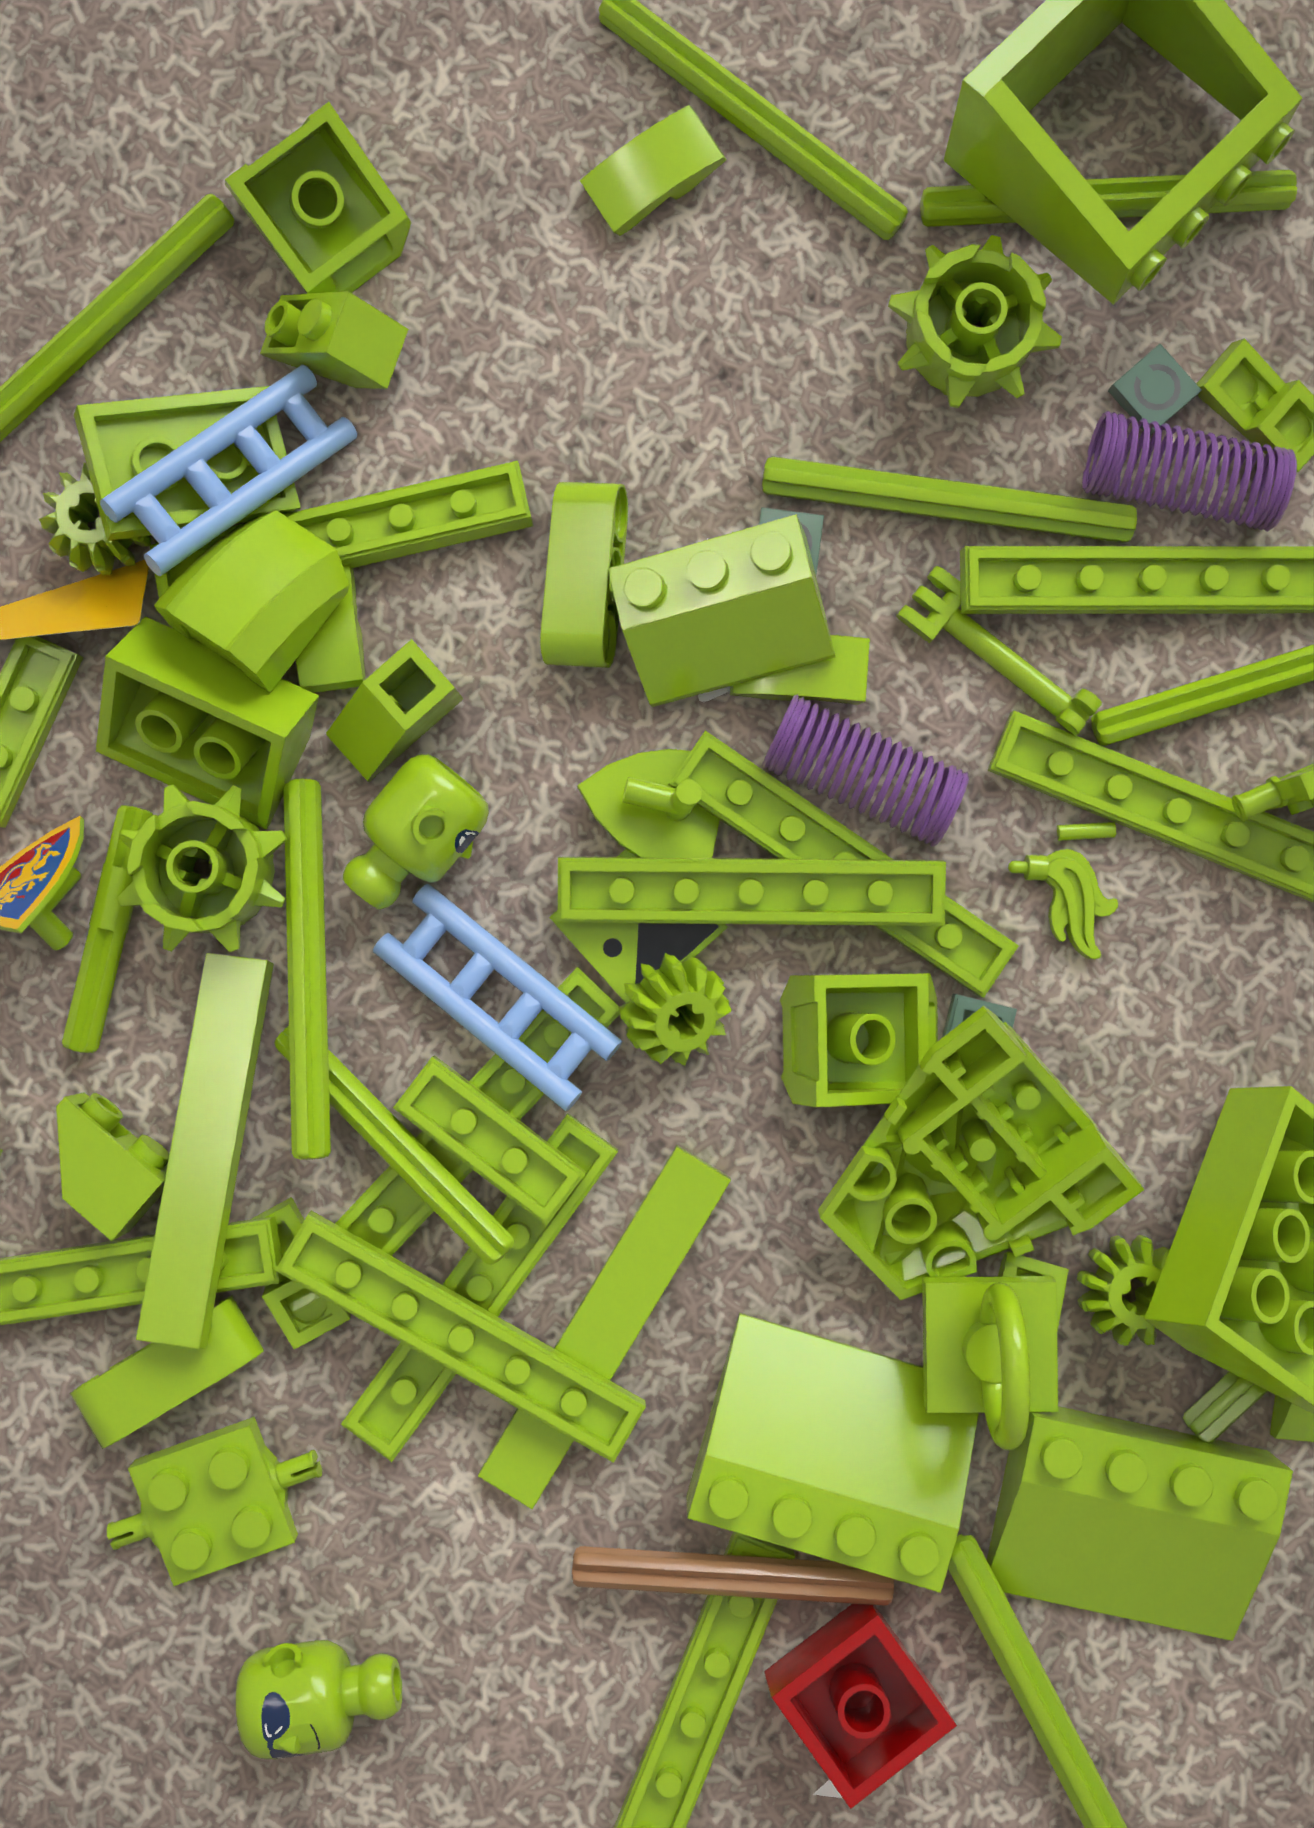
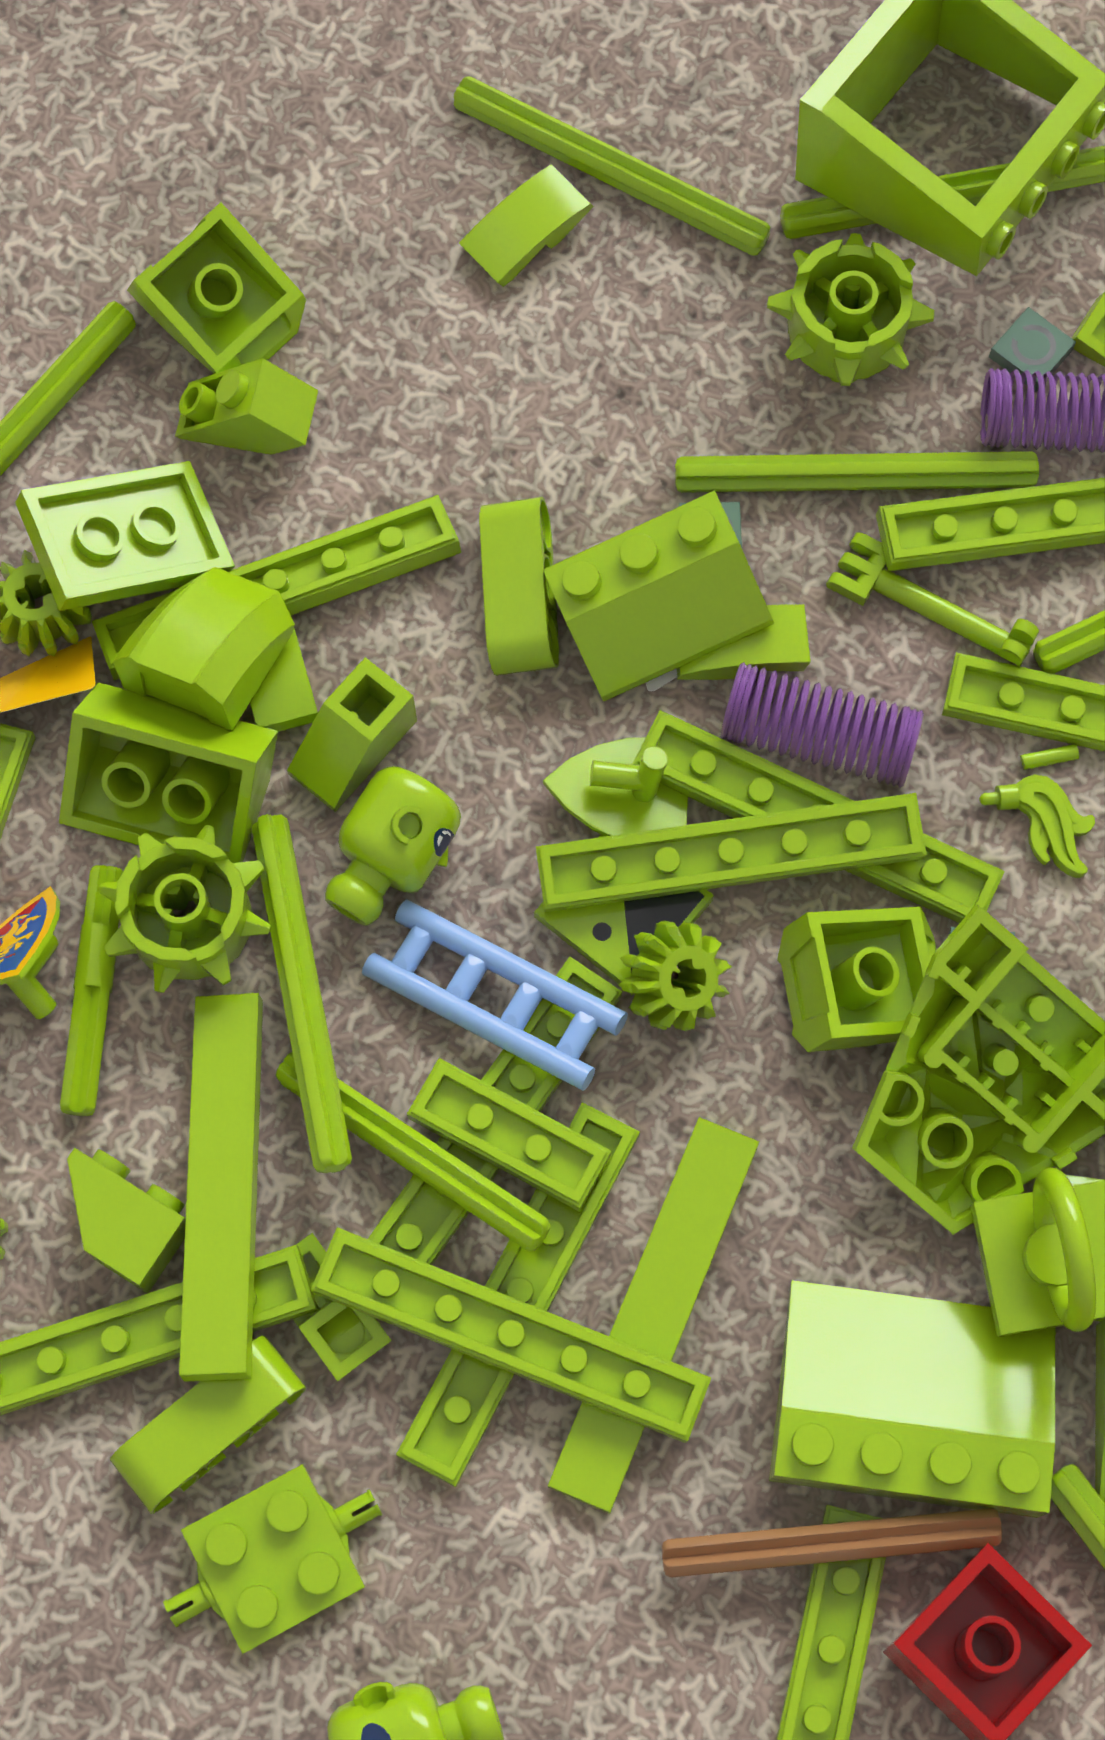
camera: 10 degrees left, 15 degrees down
(228, 508) = (166, 567): light blue bar -> none

